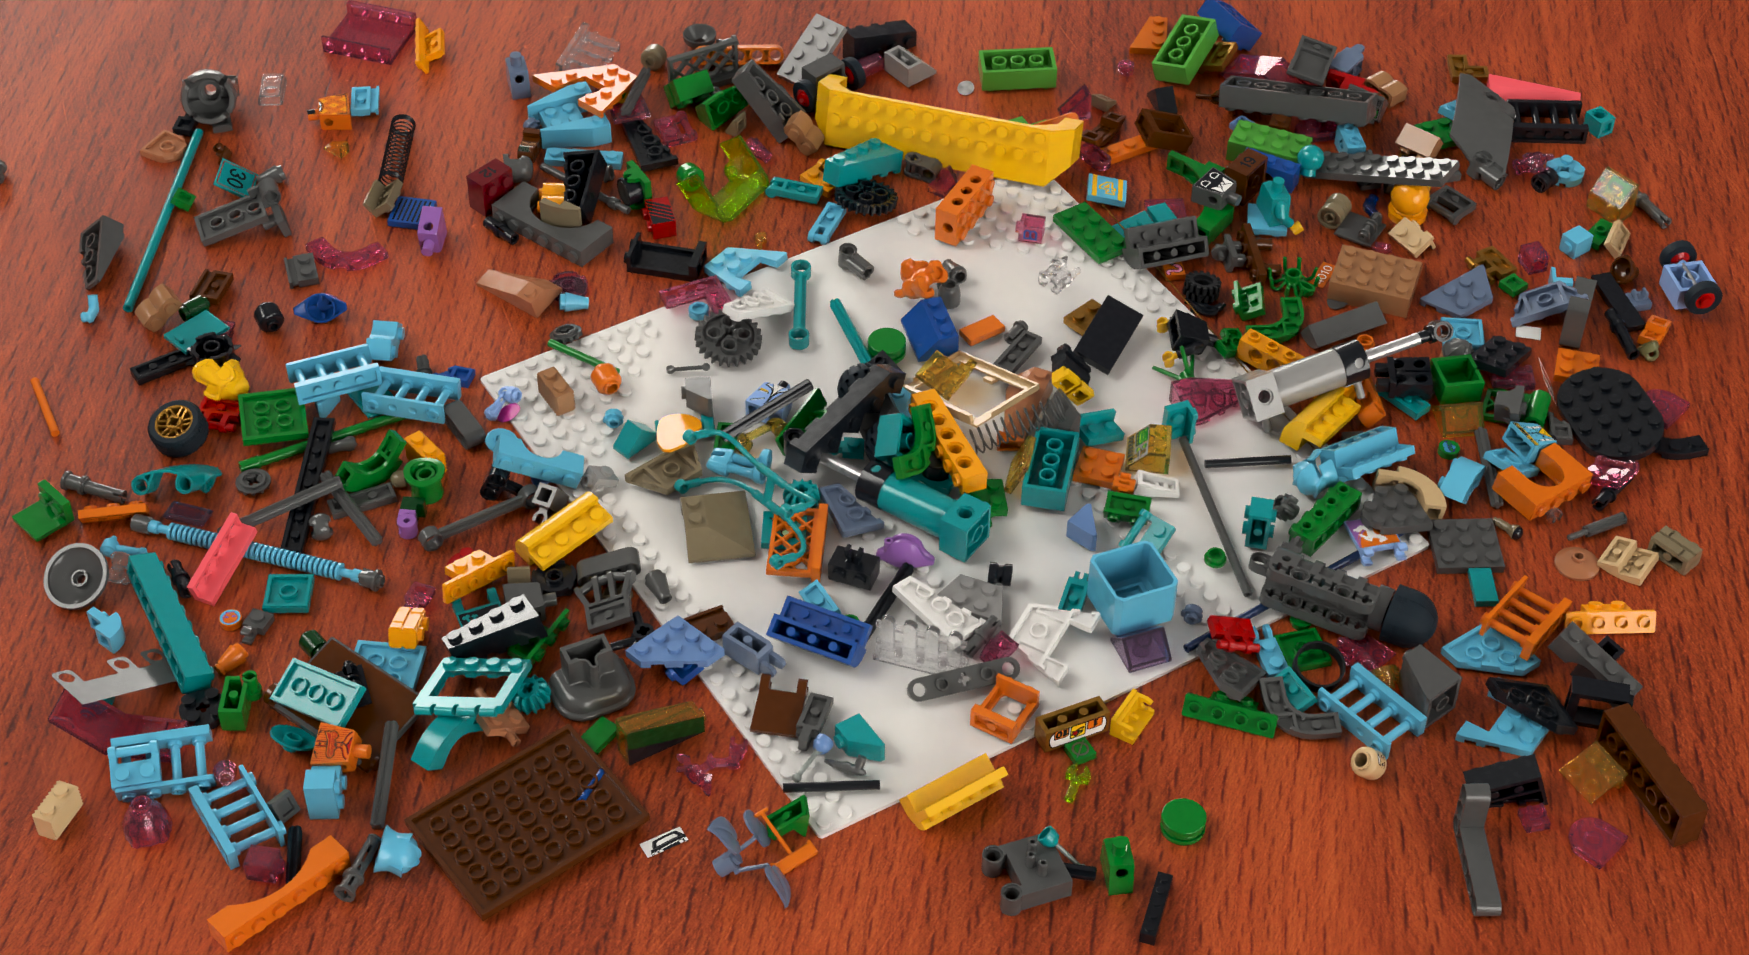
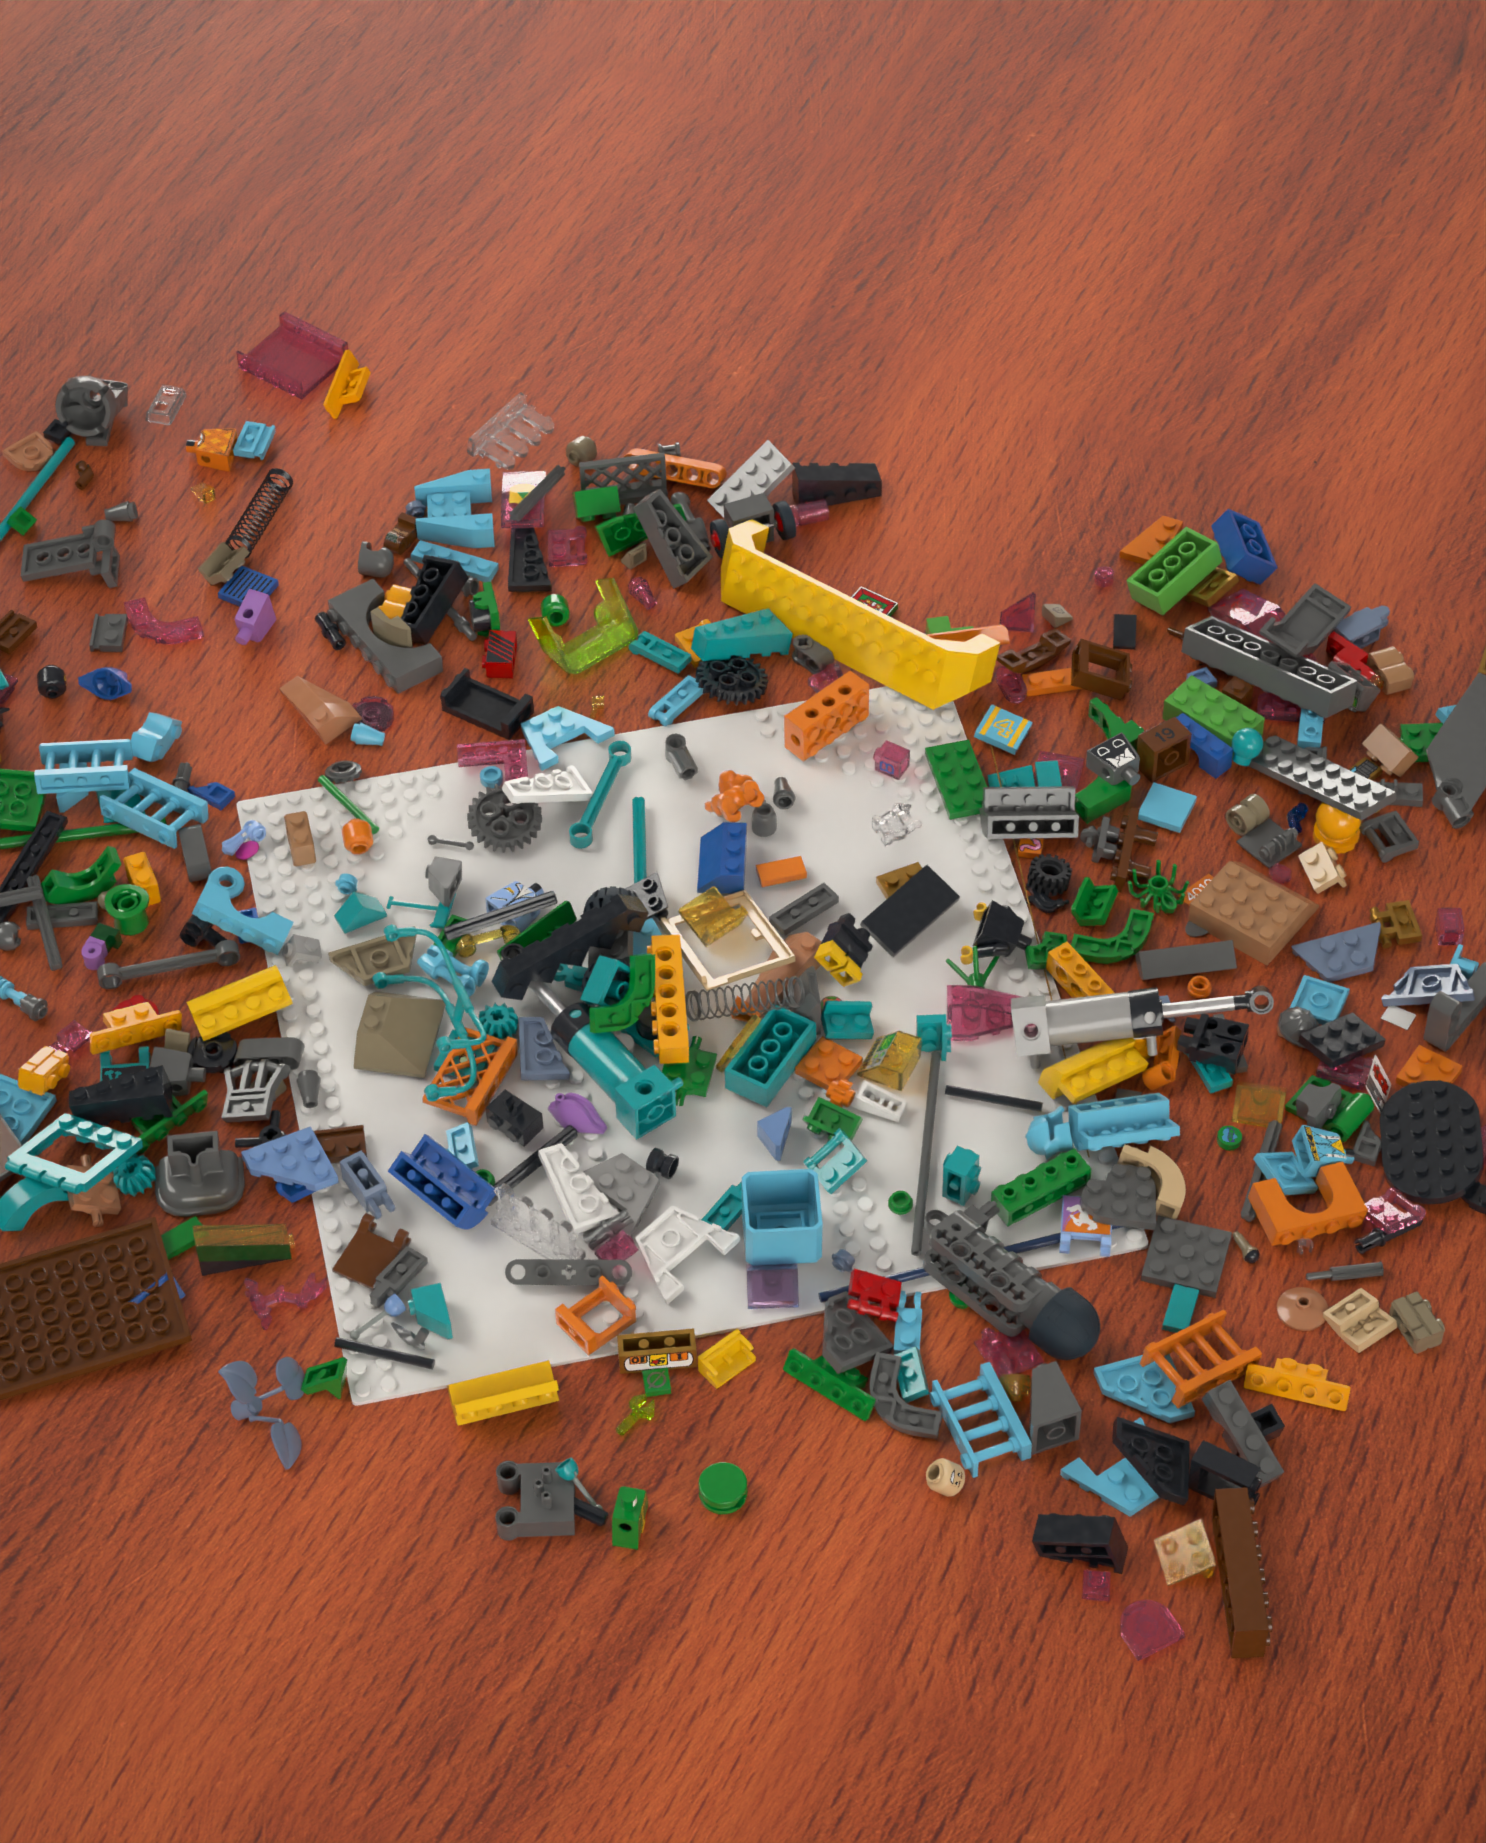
camera: 20 degrees right, 5 degrees up
(234, 178) = (81, 507): teal piece -> none
(346, 444) = (70, 848): dark grey arm -> none
(489, 185) = (334, 575): dark red brick -> none
(517, 69) = (424, 436): sand blue torso -> none
(549, 500) = (241, 964): dark grey brick -> none
(609, 79) = (516, 469): wing -> none
(663, 842) = (199, 1367): sticker -> none
(672, 428) = (403, 911): shield -> none
(699, 33) = (642, 431): dark grey piece -> none
(794, 858) = (319, 1419): orange piece -> none
(804, 133) = (697, 585): medium nougat brick -> none
(890, 341) = (671, 864): green head -> none
(906, 66) = (854, 522): light grey slope -> none
(965, 88) = (911, 562): flat silver sticker -> none
(1015, 331) = (813, 882): dark grey pin -> none
(1017, 68) = (973, 553): bright green brick -> none
(1156, 908) = (650, 1573): black piece -> none
(1275, 205) = (1176, 793): teal torso -> none
(1286, 507) = (1003, 1163): dark grey gear -> none
(1308, 660) = (946, 1331): green tile -> none
(1325, 647) = (956, 1330): black tyre -> none
(1456, 379) = (1274, 1057): green piece -> none
(1461, 479) = (1219, 1178): medium azure brick -> none
(1474, 849) = (1008, 1606): dark grey beam -> none
(1513, 285) = (1408, 955): green plate -> none

